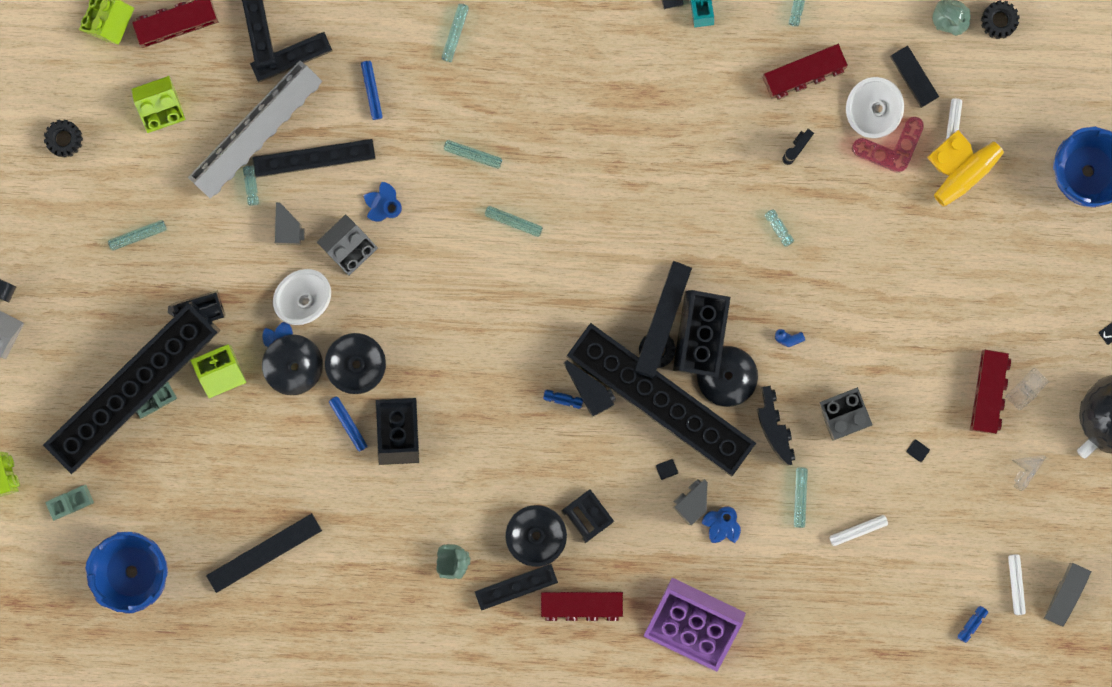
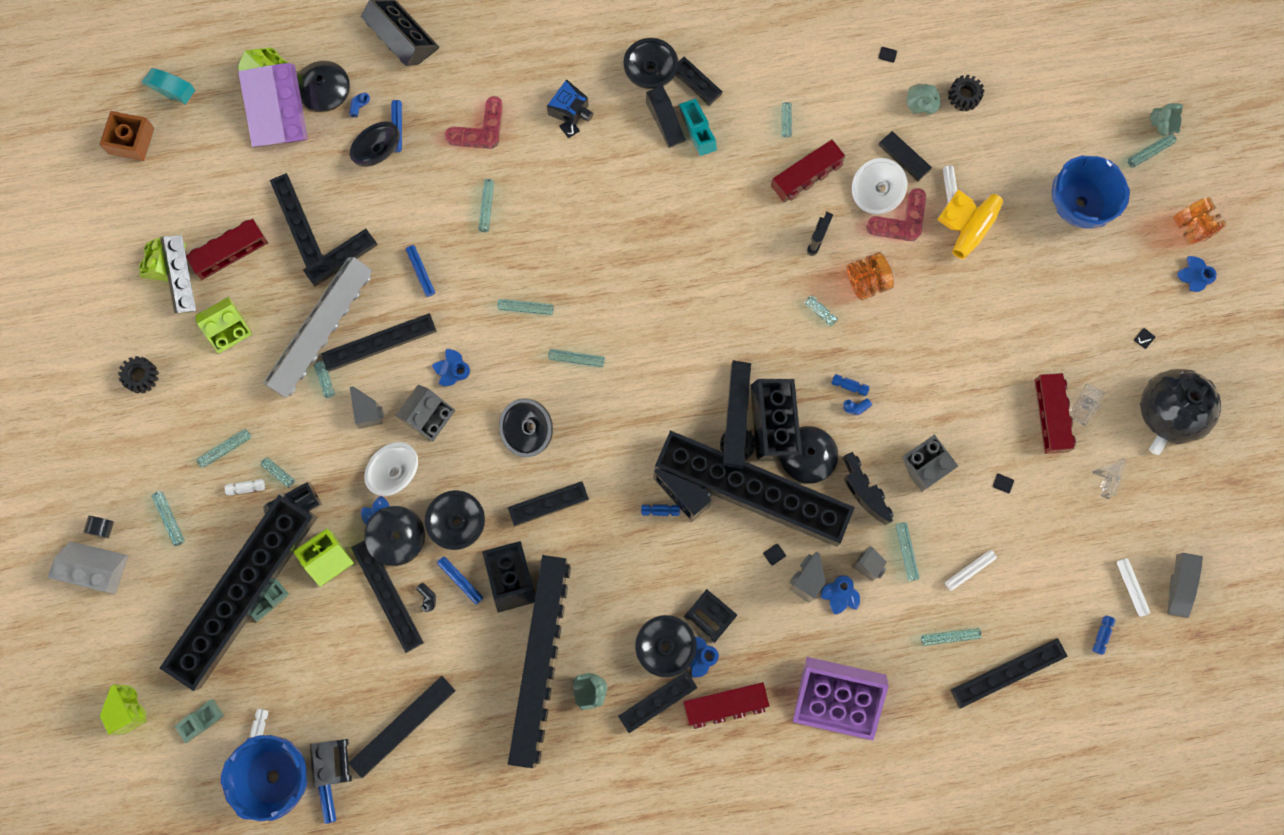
camera: 15 degrees left, 10 degrees down
(70, 295) = (168, 518): none -> clear light blue axle
(121, 40) = (178, 274): none -> plate
(126, 519) = (259, 724): none -> white axle
(151, 280) = (245, 487): none -> white axle
(178, 597) = (327, 804): none -> blue axle
(182, 571) = (323, 762): none -> black plate
(186, 272) = (277, 472): none -> clear light blue axle
(273, 424) = (388, 598): none -> black tile
(313, 435) = (429, 600): none -> black arm
(409, 522) = (538, 662): none -> black brick
(437, 289) = (517, 431): none -> black dish
(452, 367) = (548, 503): none -> black plate
(566, 561) = (701, 665): none -> blue plate
(759, 502) = (870, 564): none -> dark grey slope
(788, 313) = (850, 385): none -> blue axle
(821, 591) = (951, 636): none -> clear light blue axle
(837, 205) = (870, 276): none -> clear orange wheel
(868, 638) = (1008, 673): none -> black tile

